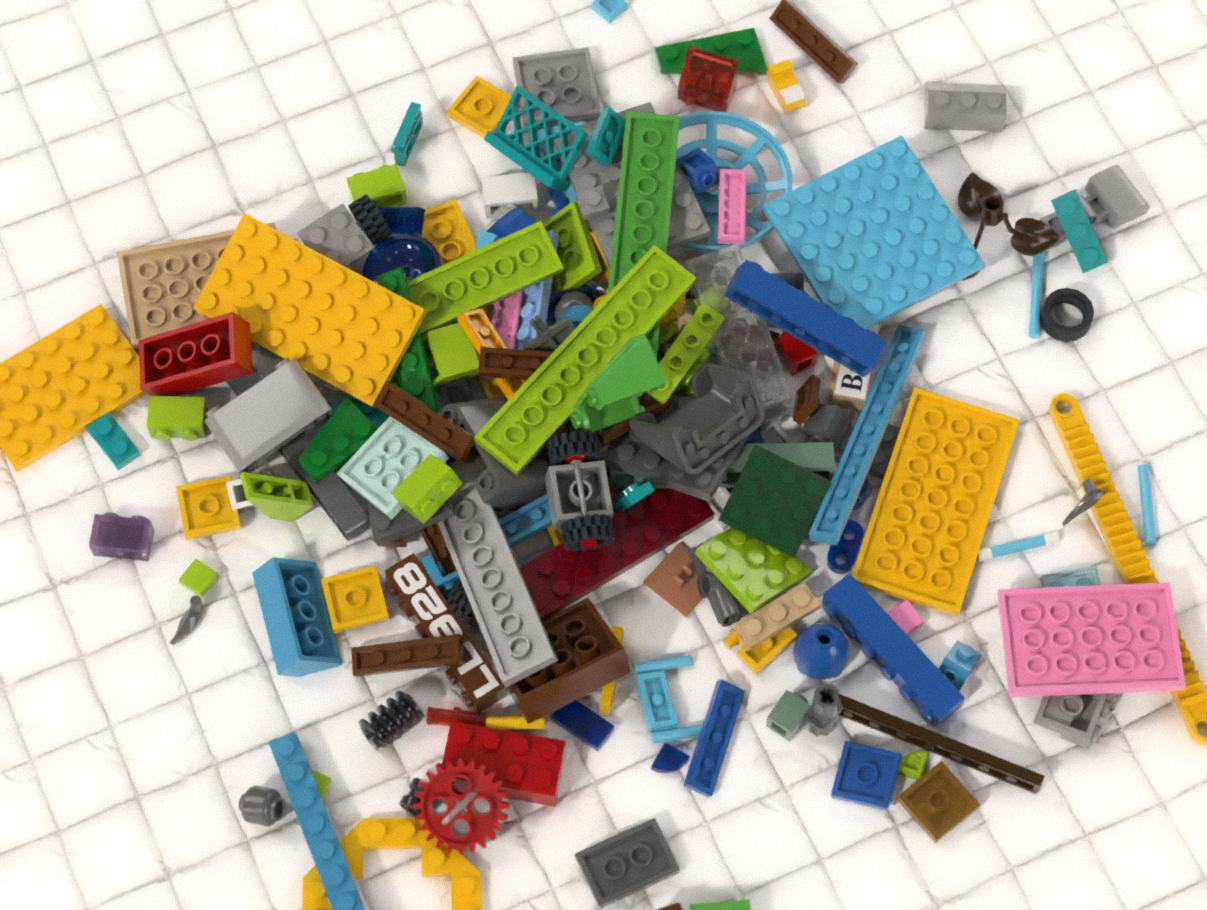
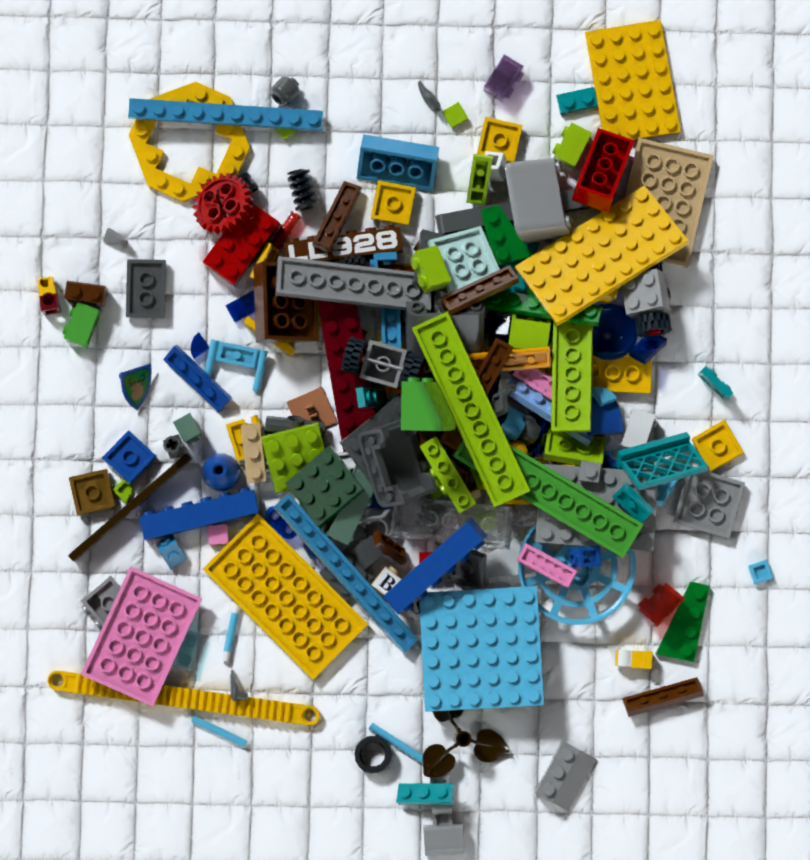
camera: 115 degrees right, 20 degrees up
(381, 185) = (682, 344): lime brick -> none
(765, 813) = (136, 384): none -> shield

